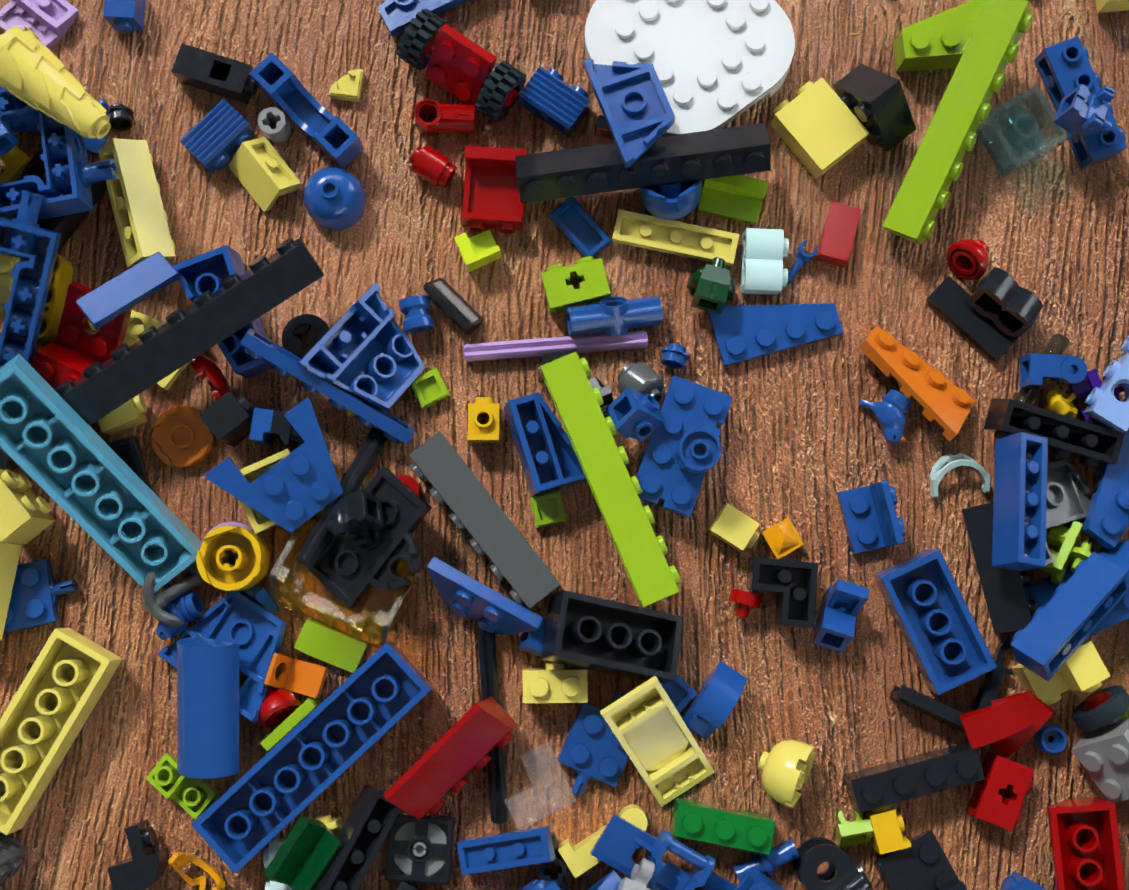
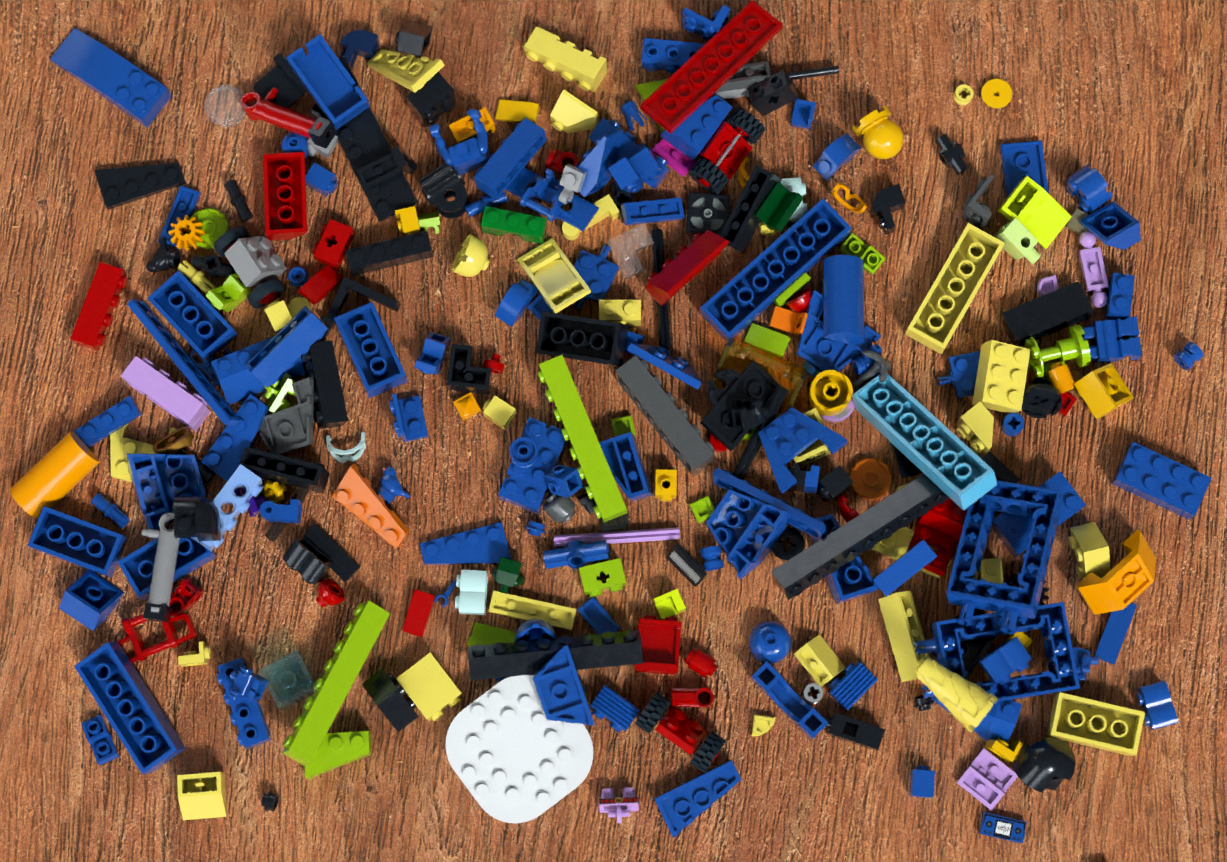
camera: 175 degrees left, 5 degrees down
(997, 721) = (335, 284): red slope -> none
(1020, 502) = (315, 418): blue brick -> none

